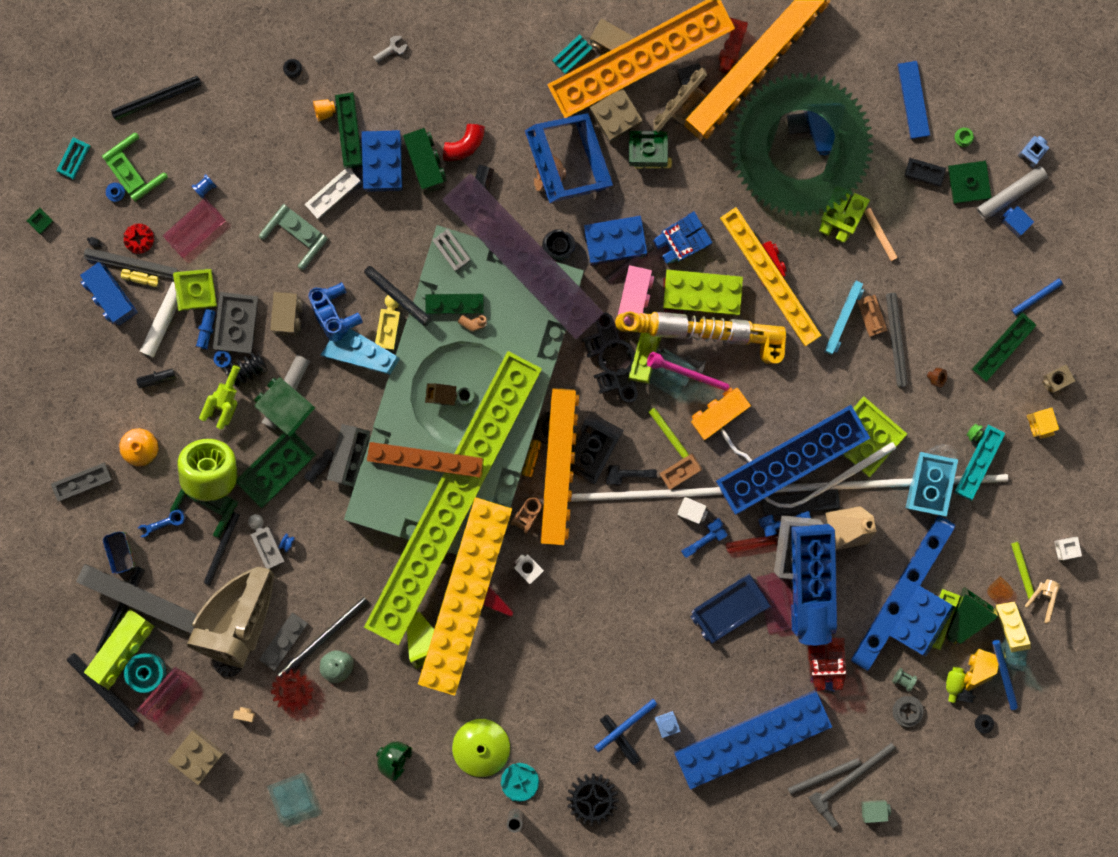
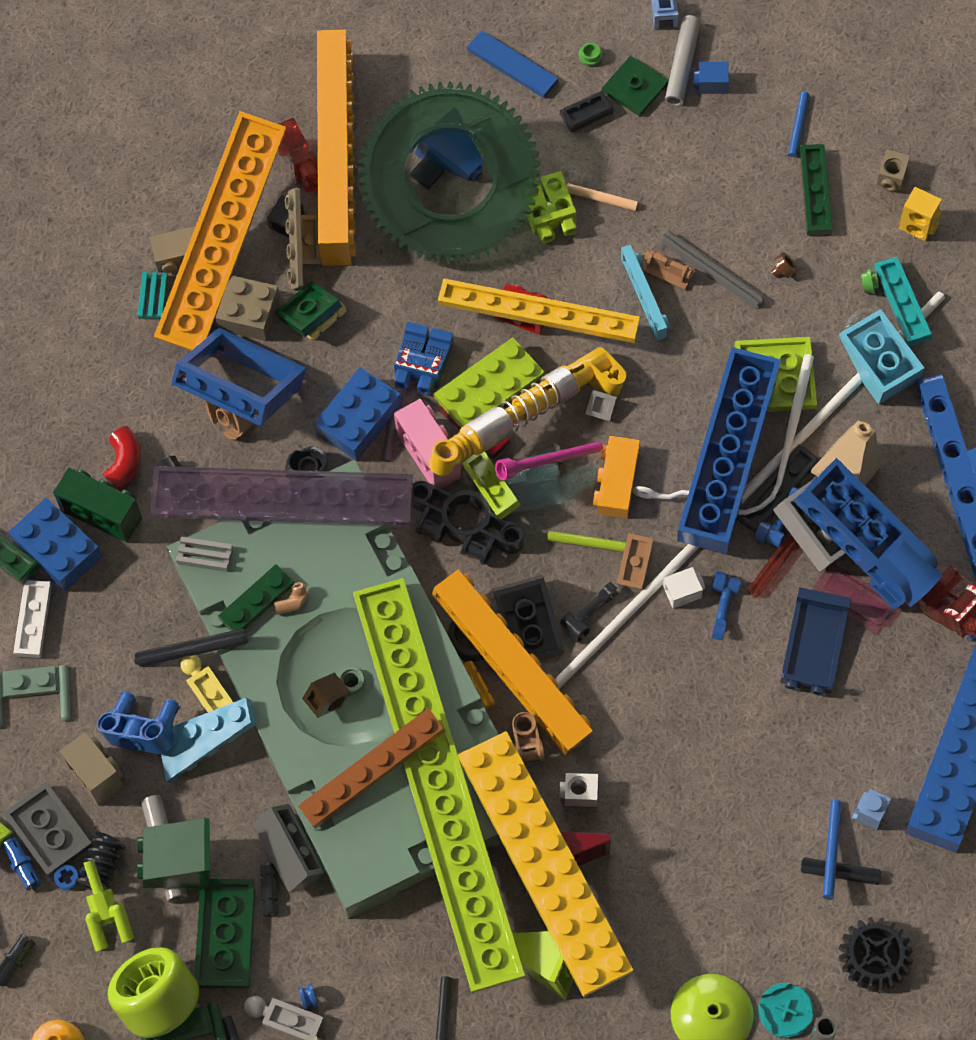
camera: 35 degrees left, 20 degrees down
(752, 362) = (600, 405): none -> light grey plate

